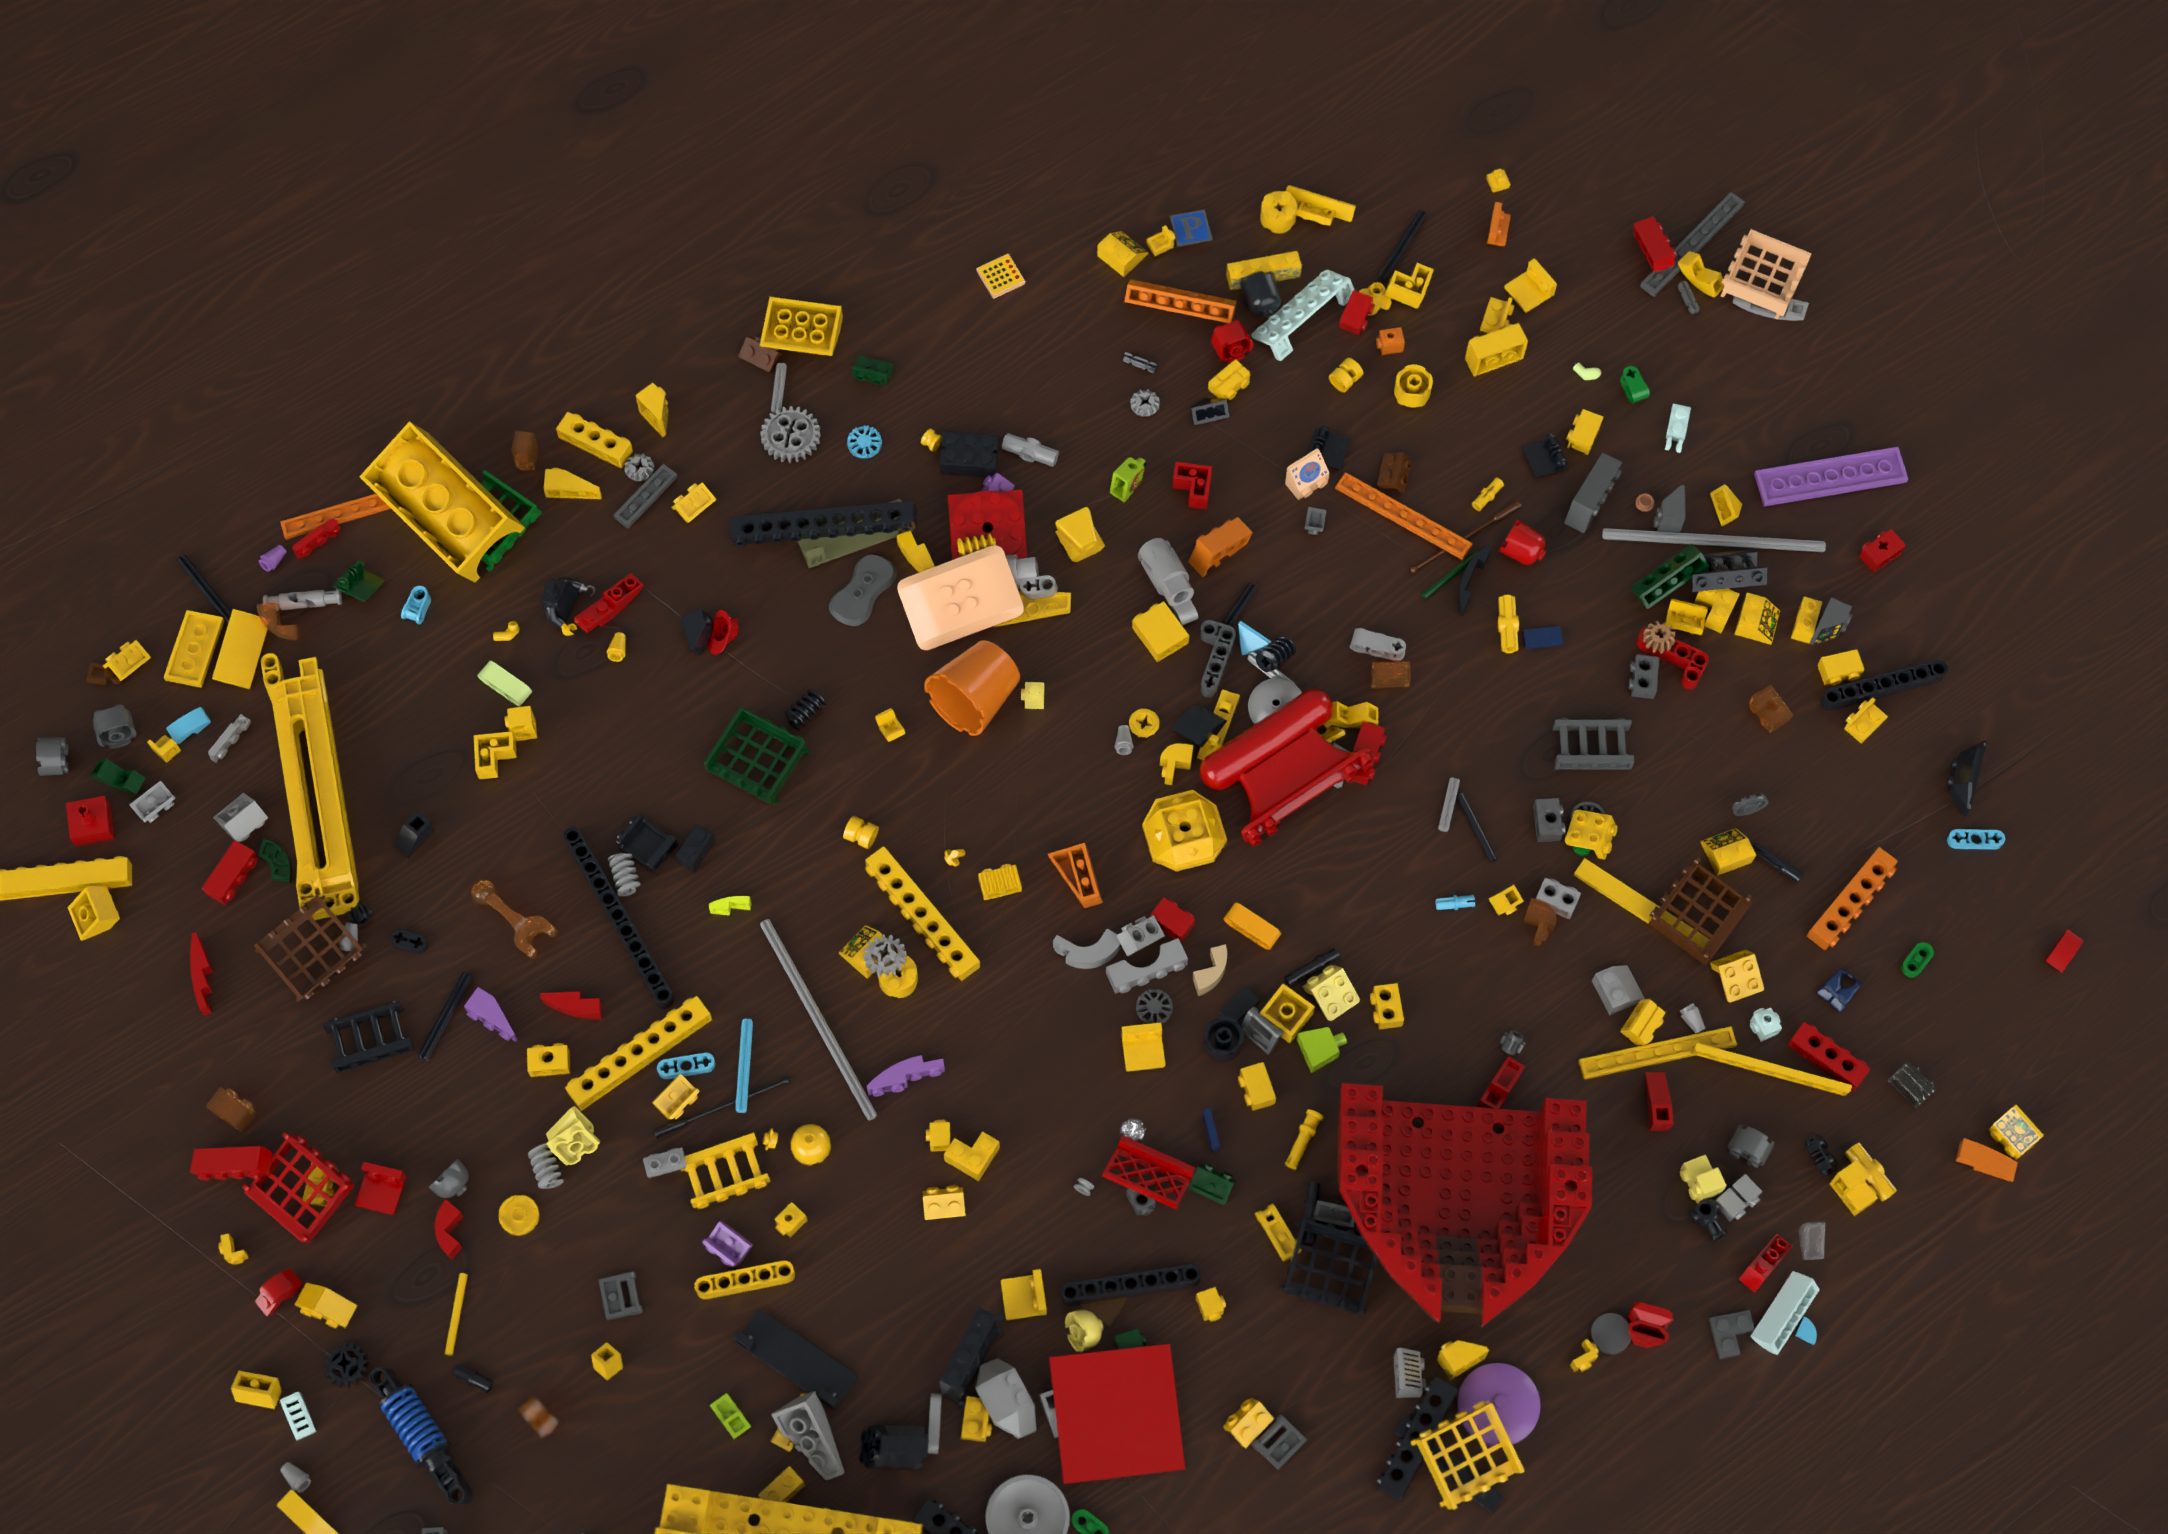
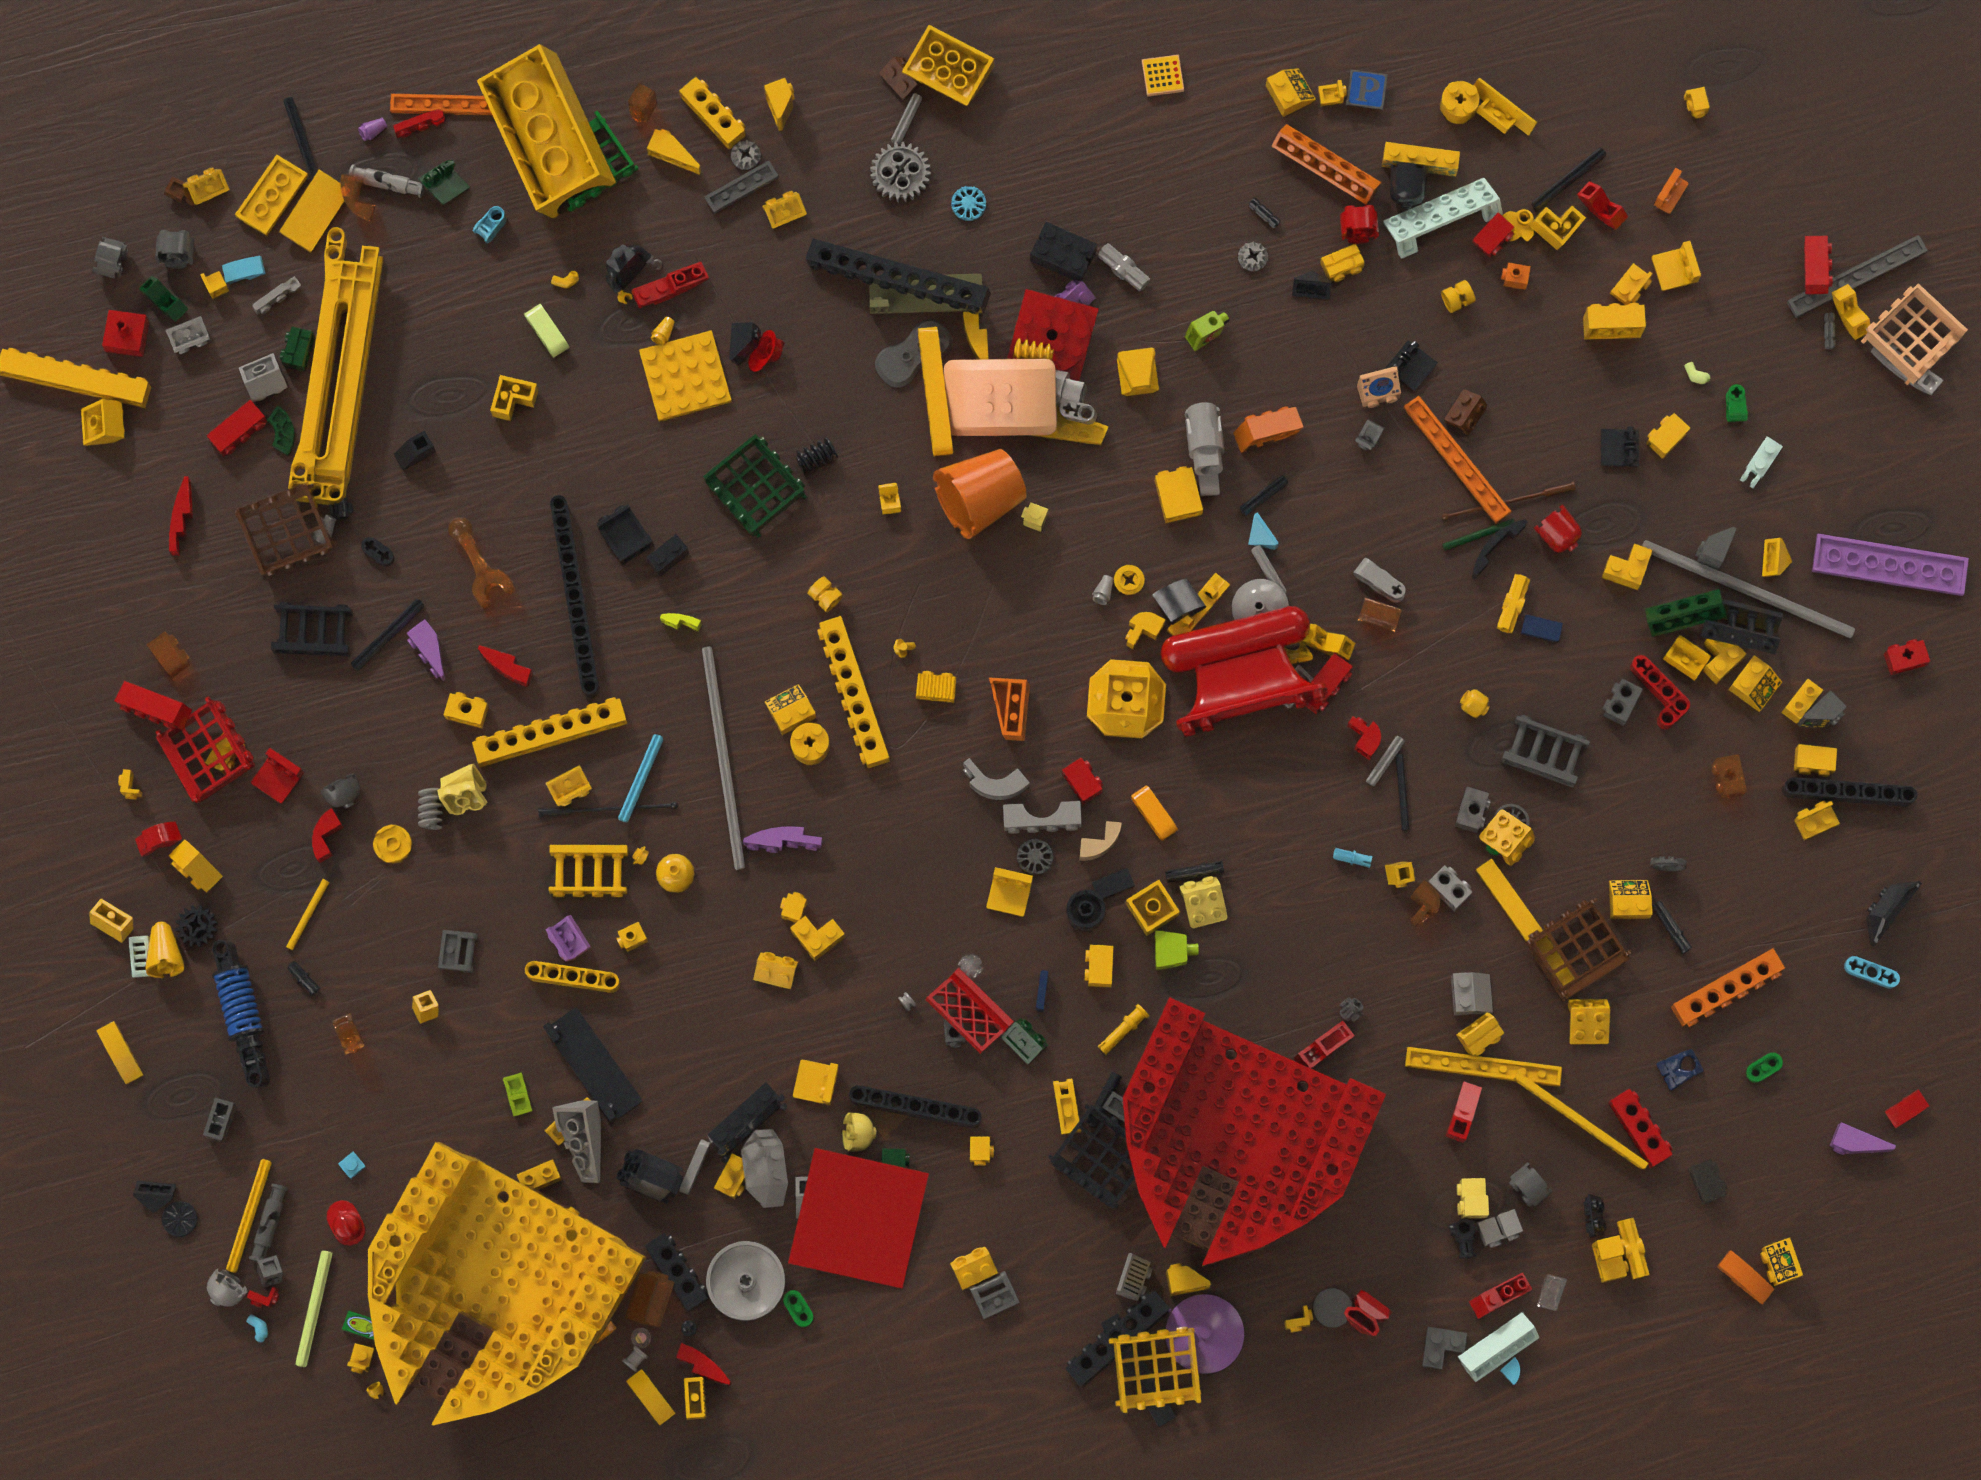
camera: 20 degrees right, 10 degrees up
(266, 779) = (297, 349): none -> dark green brick
(295, 1477) = (121, 1011): light grey cone -> none
(321, 1403) = (163, 952): none -> yellow cone
(521, 723) = (548, 377): yellow brick -> none
(623, 874) = (593, 557): light grey piece -> none
(653, 681) = (685, 376): none -> yellow plate
(665, 1162) = (537, 844): light grey bracket -> none
(679, 1060) = (573, 762): medium azure beam -> none
(872, 370) = (1003, 132): dark green bracket -> none
(880, 949) = (807, 729): light grey gear -> none
(896, 614) = (935, 391): none -> yellow beam
(931, 440) = (1033, 224): yellow wheel -> none
(1140, 935) = (1045, 785): light grey brick -> none
(1196, 479) = (1270, 353): red brick -> none
(1215, 660) = (1219, 542): dark grey beam -> none
(1259, 1034) = (1122, 915): dark grey plate -> none
(1275, 654) = (1277, 557): black piece -> none
(1390, 1006) = (1253, 935): yellow brick -> none
(1413, 386) = (1518, 341): yellow brick -> none
(1426, 786) = (1370, 737): none -> red brick
(1437, 257) = (1598, 203): none -> red brick
(1487, 494) = (1547, 466): yellow pin -> none
(1489, 145) = (1697, 102): none -> yellow brick
(1498, 180) = (1692, 142): yellow tile -> none
(1510, 723) = (1474, 703): none -> yellow head
(1593, 492) = (1650, 500): dark grey wedge -> none
(1601, 559) = (1629, 572): none -> yellow brick
(1644, 502) = (1696, 527): nougat plate -> none
(1659, 637) = (1642, 671): medium nougat gear -> none
(1693, 1018) = (1529, 1046): light grey cone -> none
(1765, 1023) = (1590, 1082): light aqua brick -> none
(2029, 997) = (1852, 1141): none -> medium lavender slope

